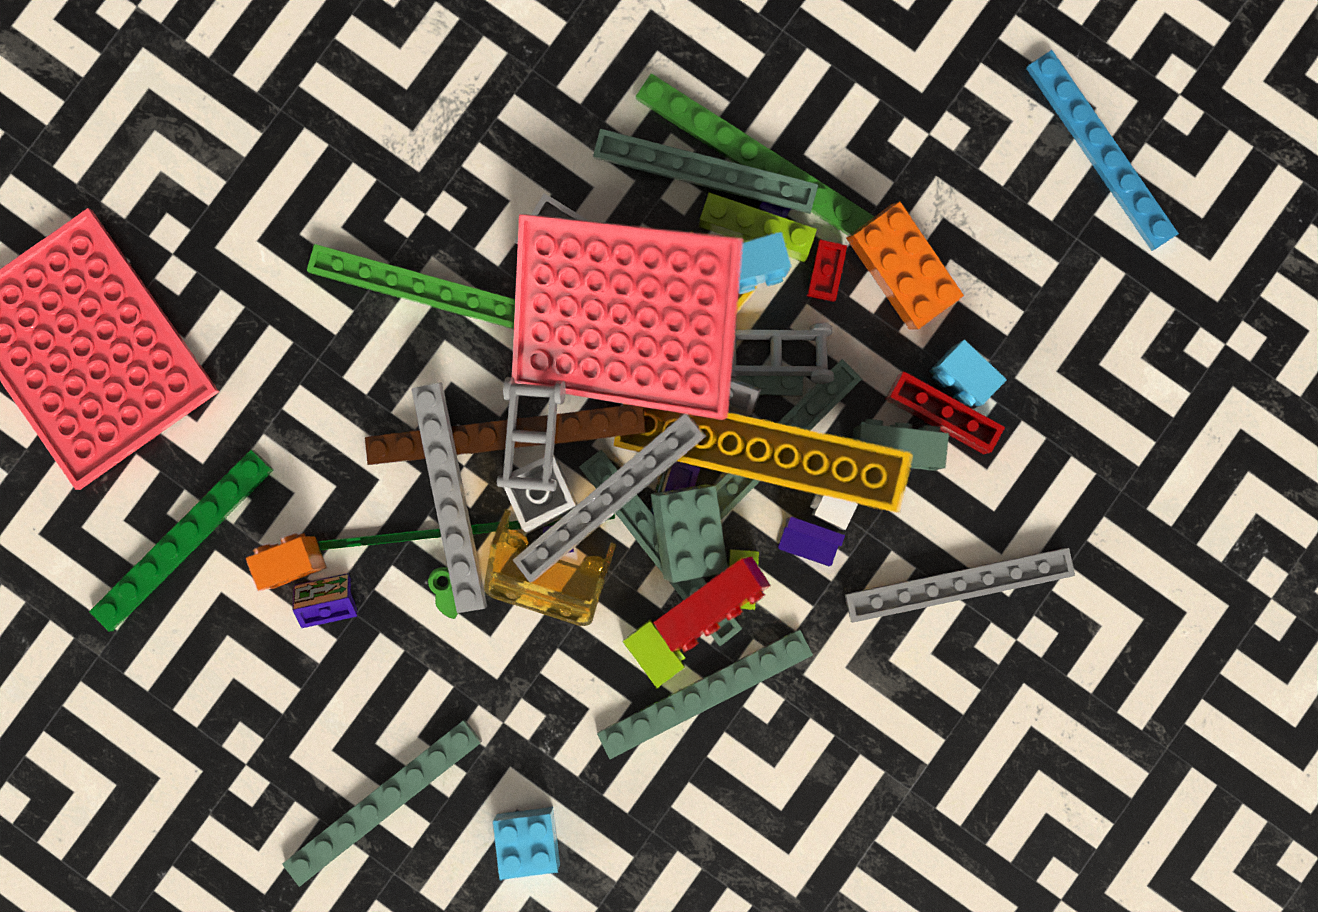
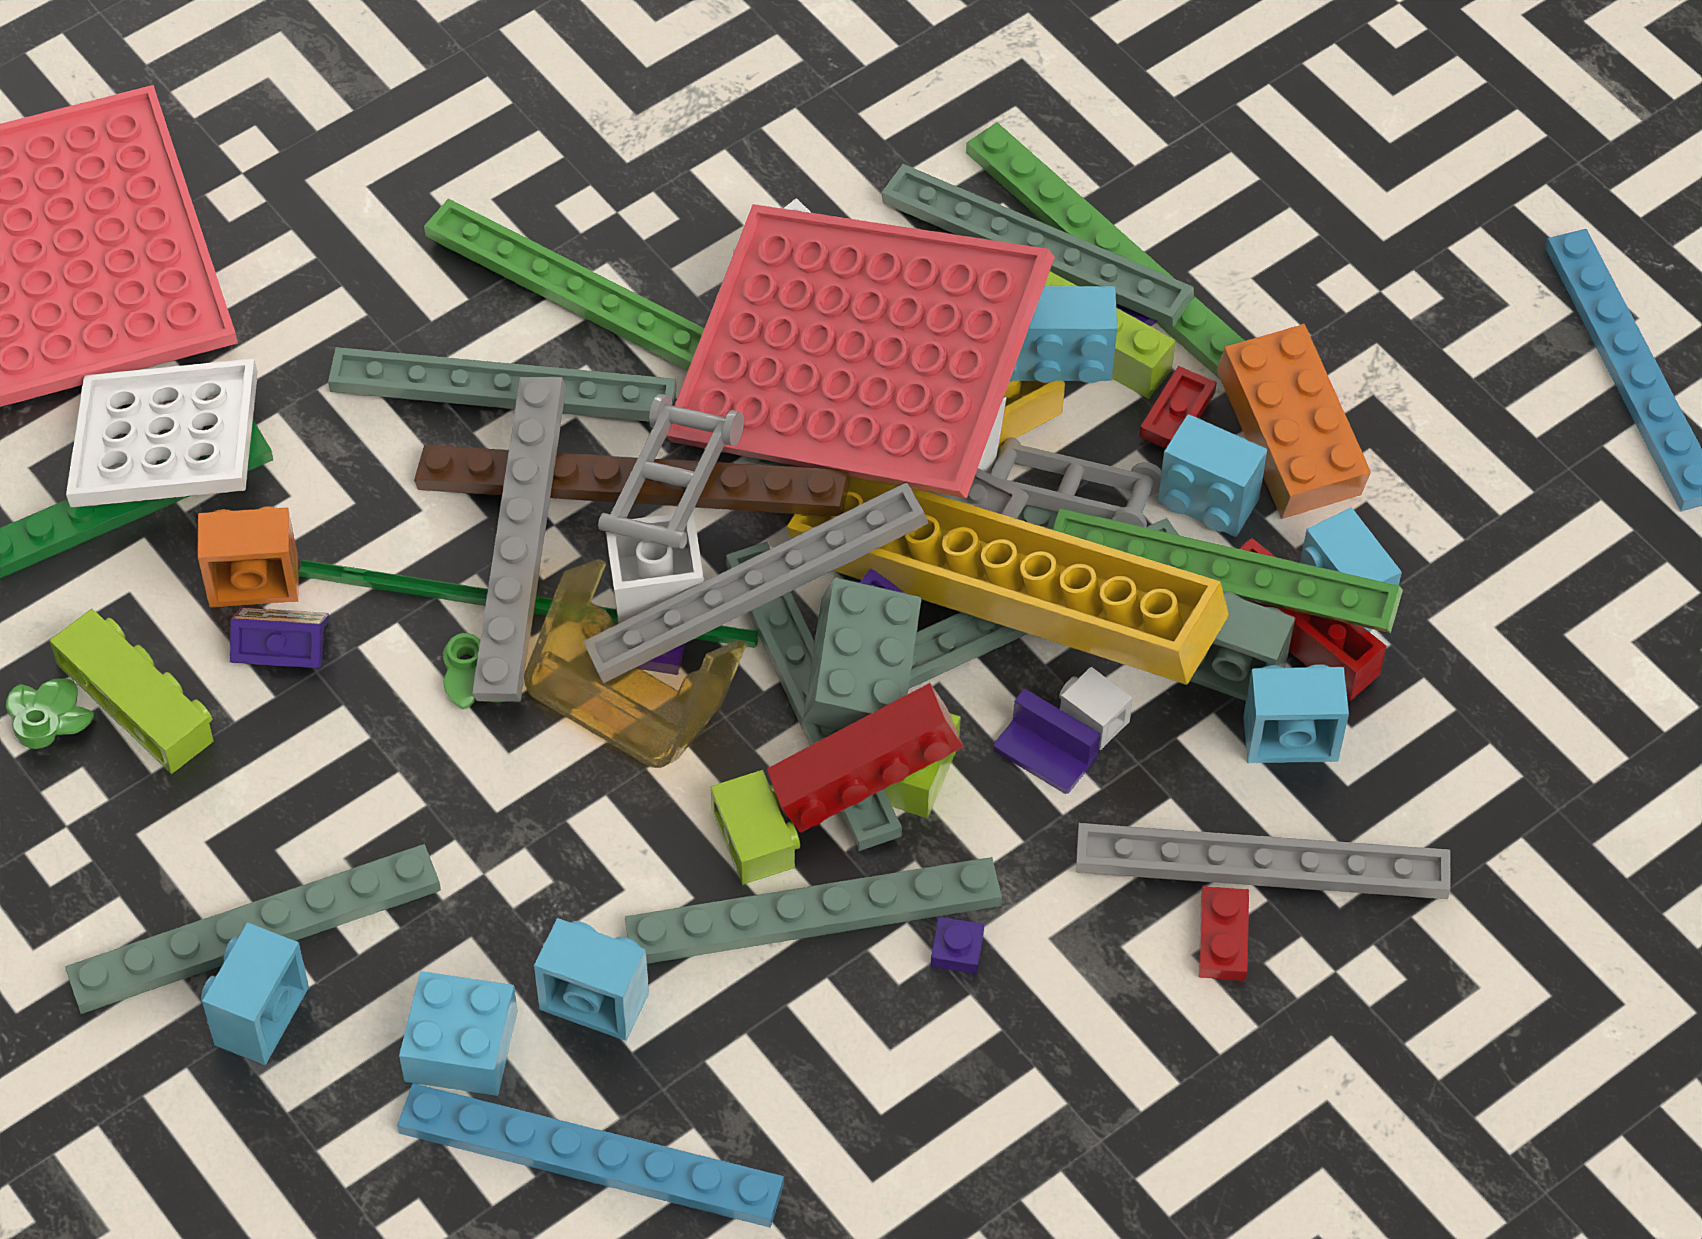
camera: 15 degrees right, 30 degrees down
(206, 691) = (46, 712): none -> bright green plate
(221, 520) = (182, 475): none -> white piece
(249, 668) = (133, 690): none -> lime brick
(397, 377) = (491, 383): none -> sand green plate
(400, 861) = (255, 993): none -> medium azure brick
(593, 792) = (592, 978): none -> medium azure brick
(625, 889) = (591, 1155): none -> dark azure plate
(795, 691) = (957, 945): none -> dark purple plate
(865, 325) = (1211, 475): none -> medium azure brick
(896, 406) = (1248, 573): none -> bright green plate
(947, 637) = (1224, 933): none -> red plate
(959, 487) = (1295, 714): none -> medium azure brick

